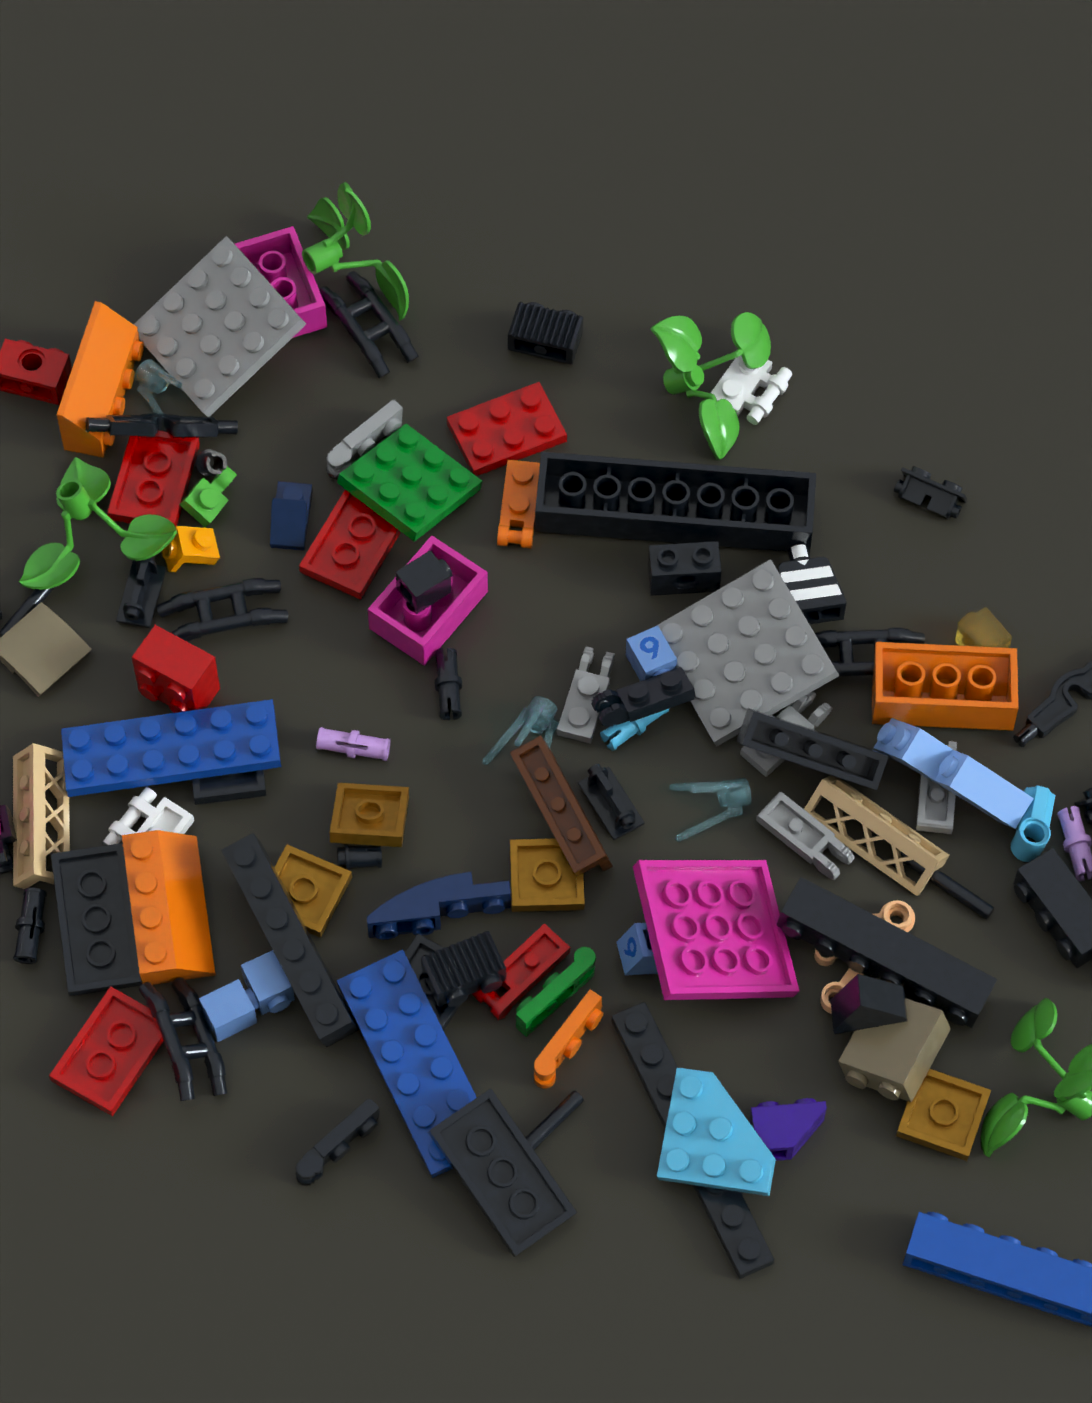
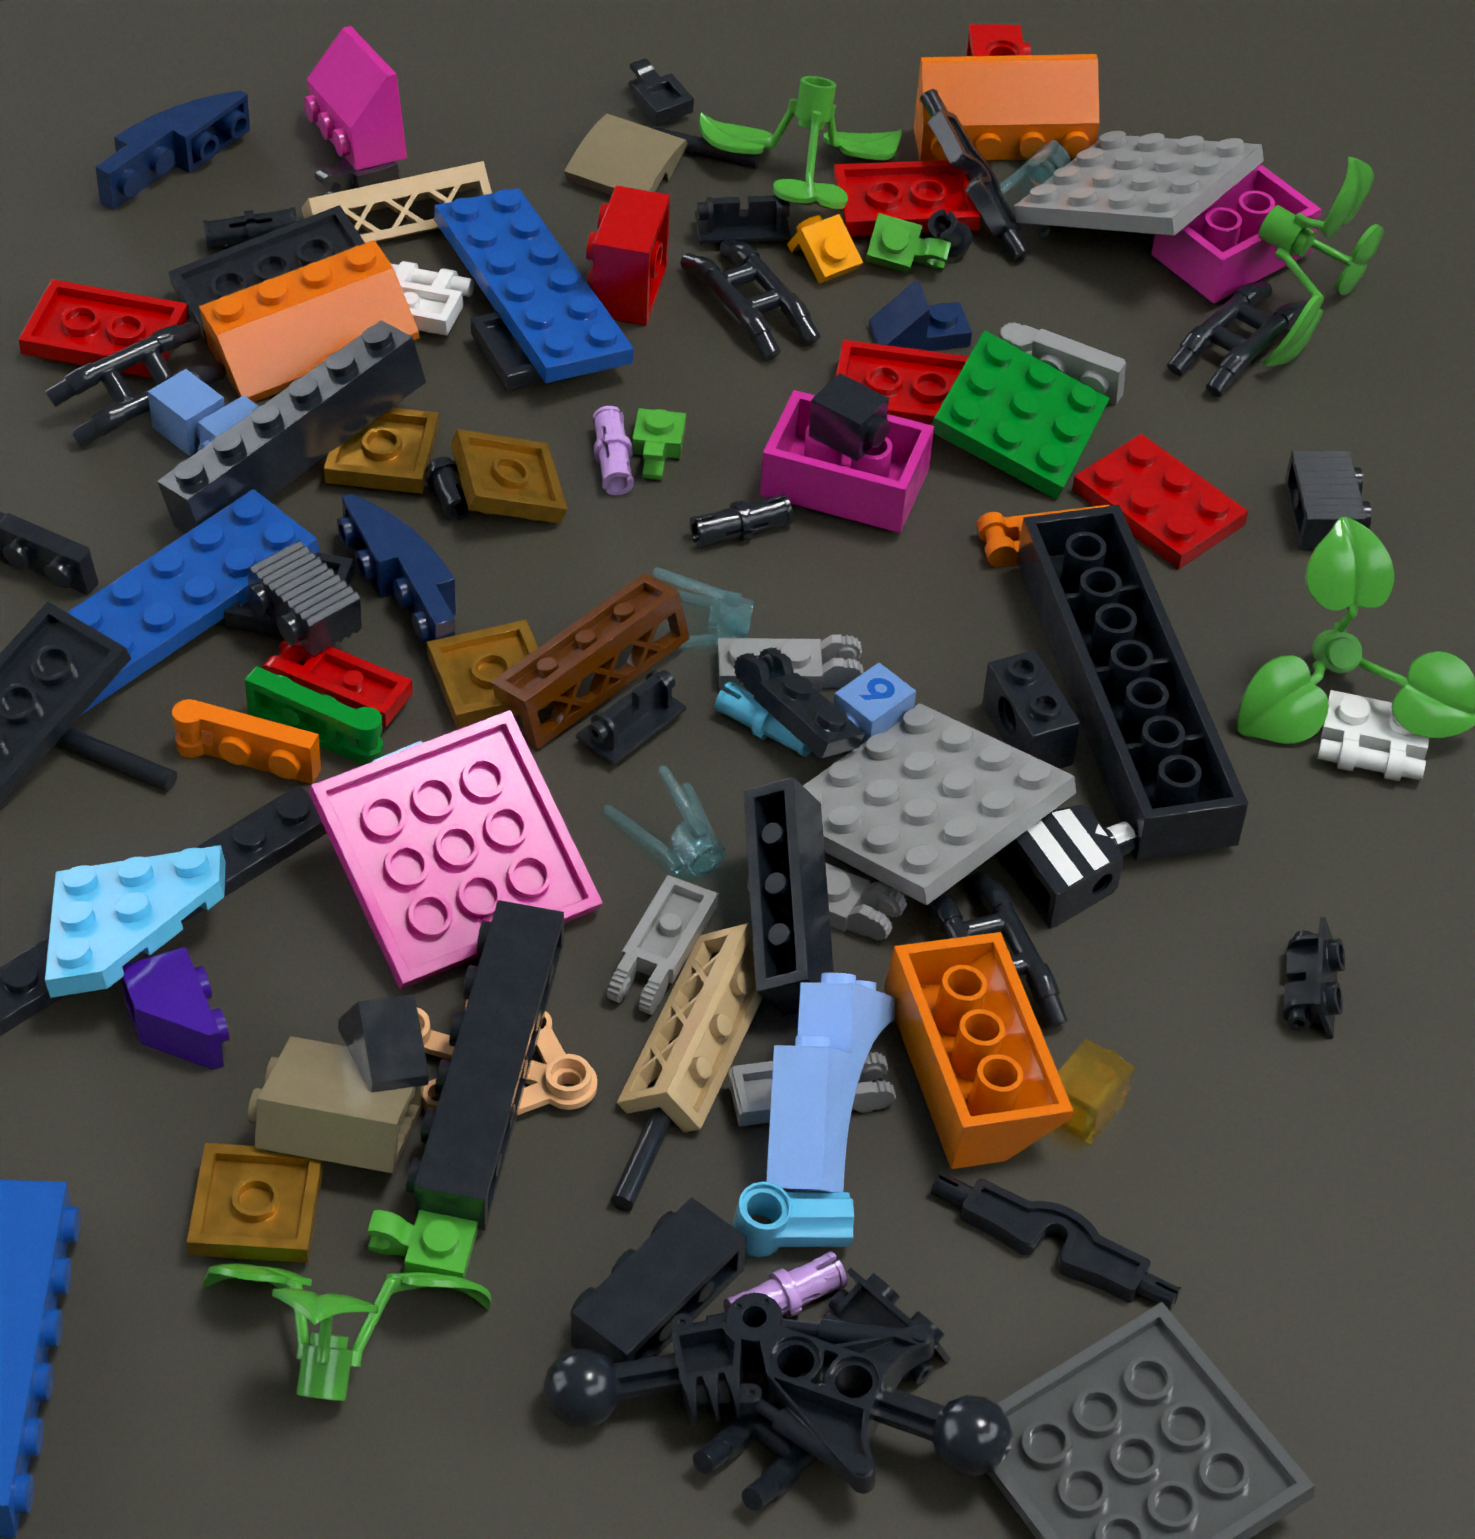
camera: 70 degrees right, 15 degrees down
(347, 711) = (657, 437): none -> bright green plate
(995, 1023) = (432, 1245): none -> bright green plate

